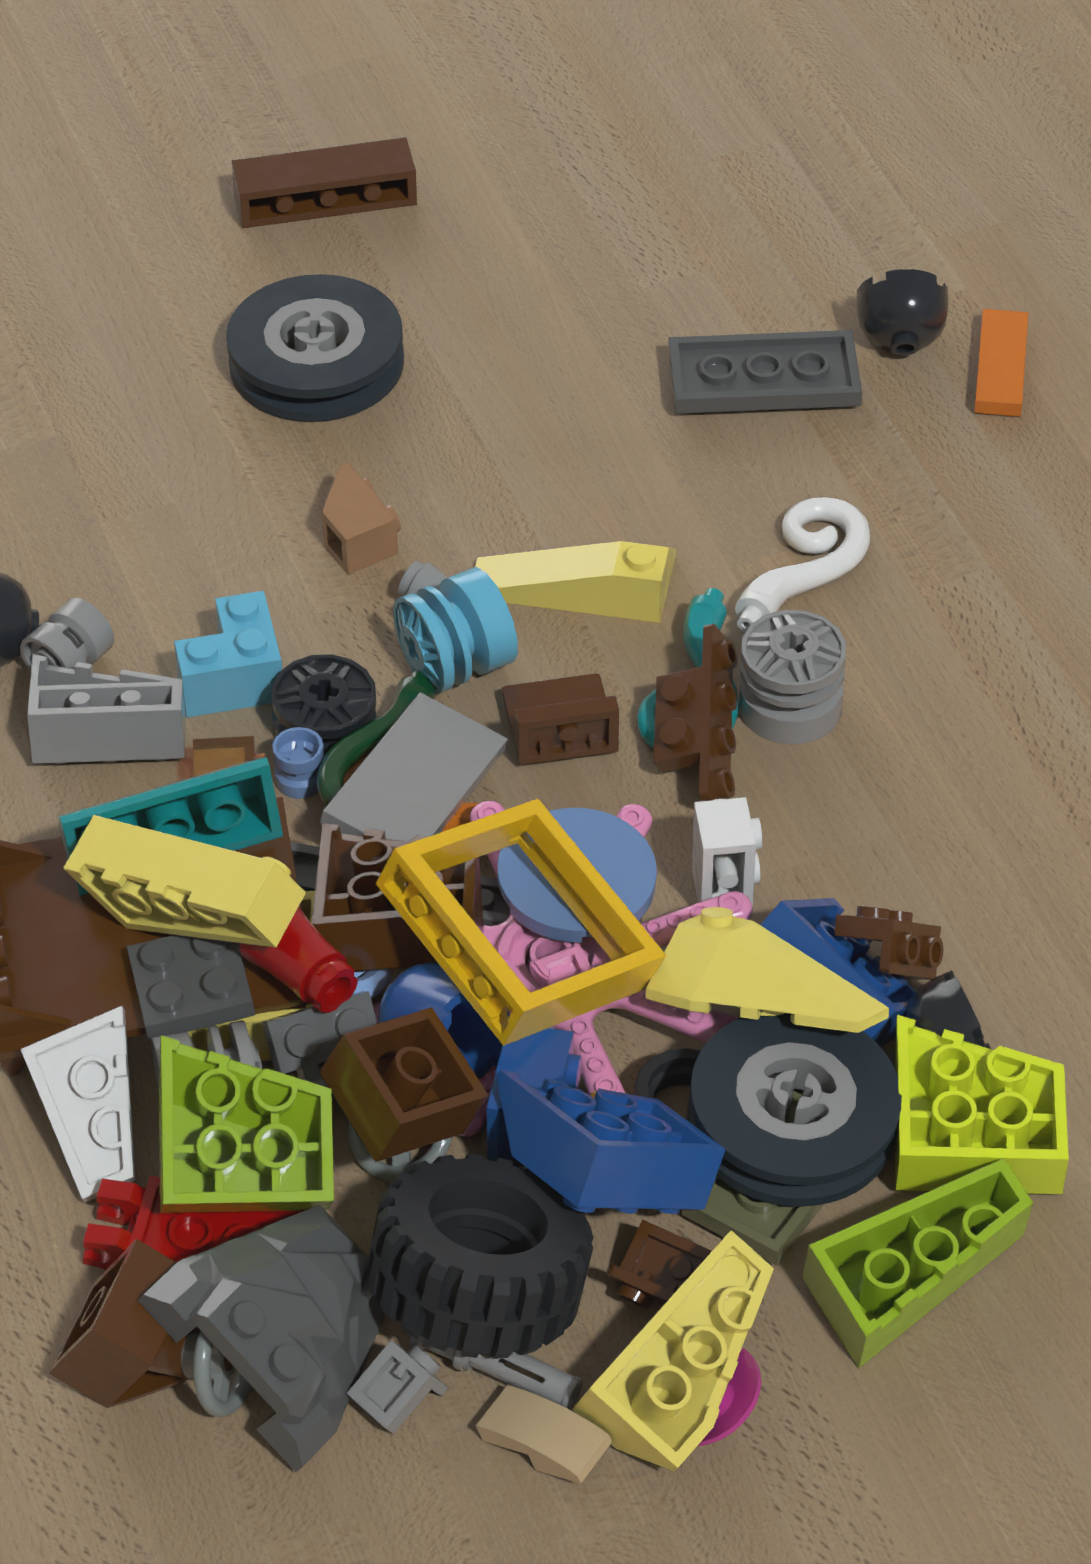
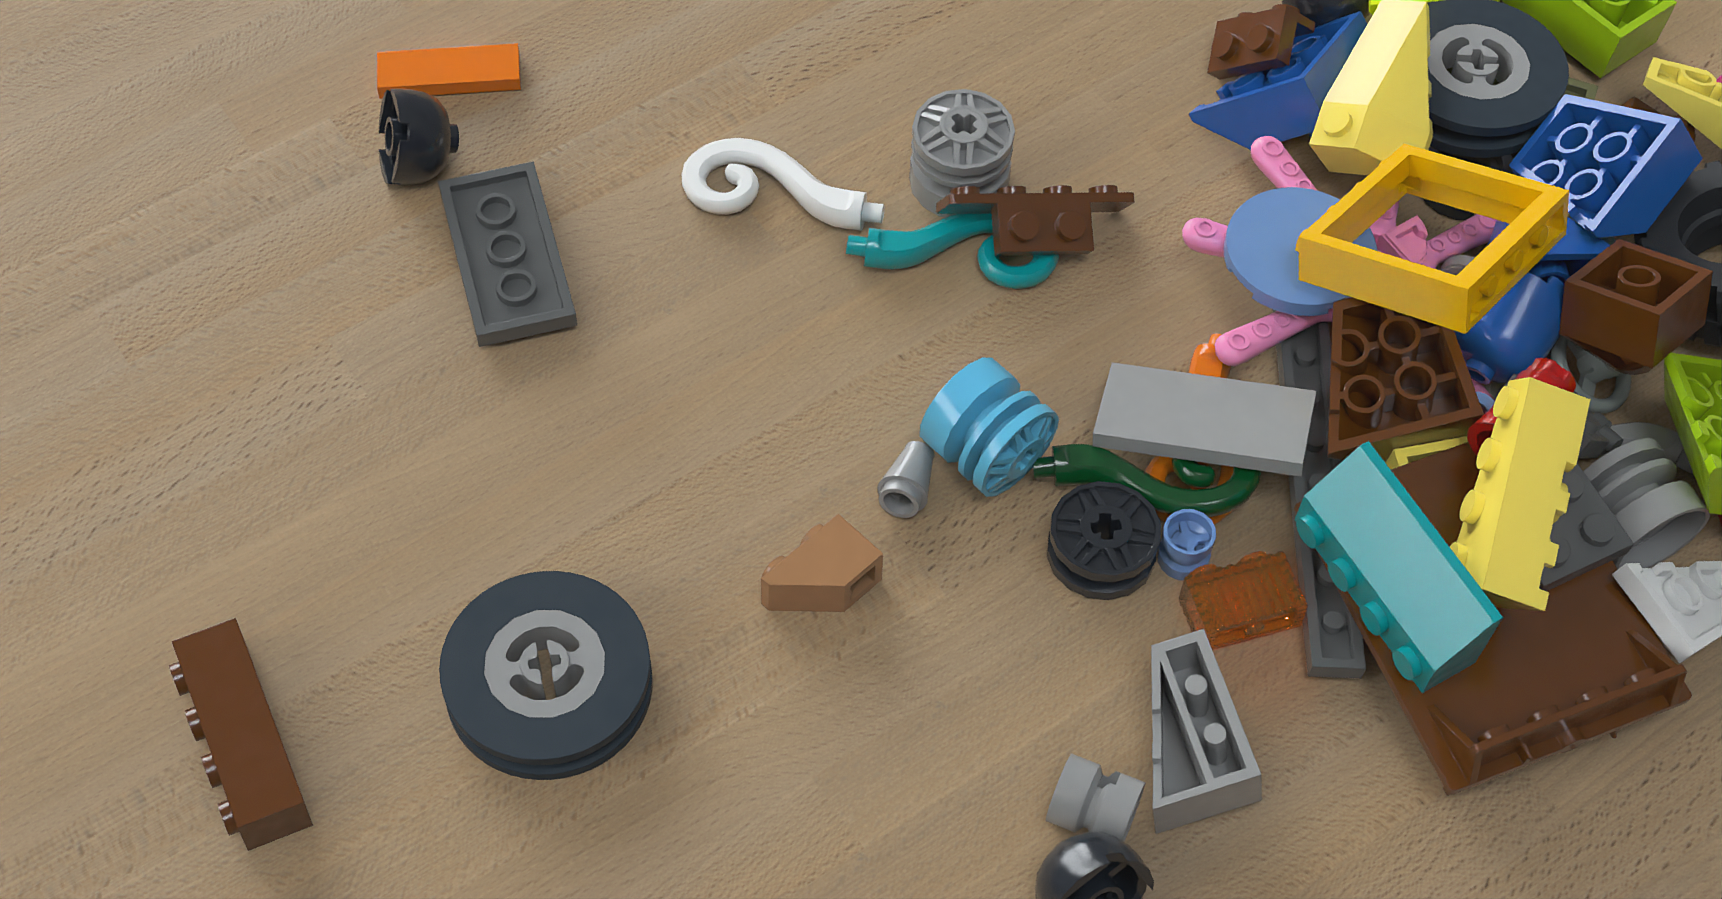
camera: 105 degrees left, 10 degrees up
(232, 666) = (1065, 623): medium azure brick -> none
(561, 718) = (1054, 337): reddish brown bracket -> none
(590, 579) = (837, 349): light yellow wedge -> none
(725, 848) = (1210, 166): white brick -> none

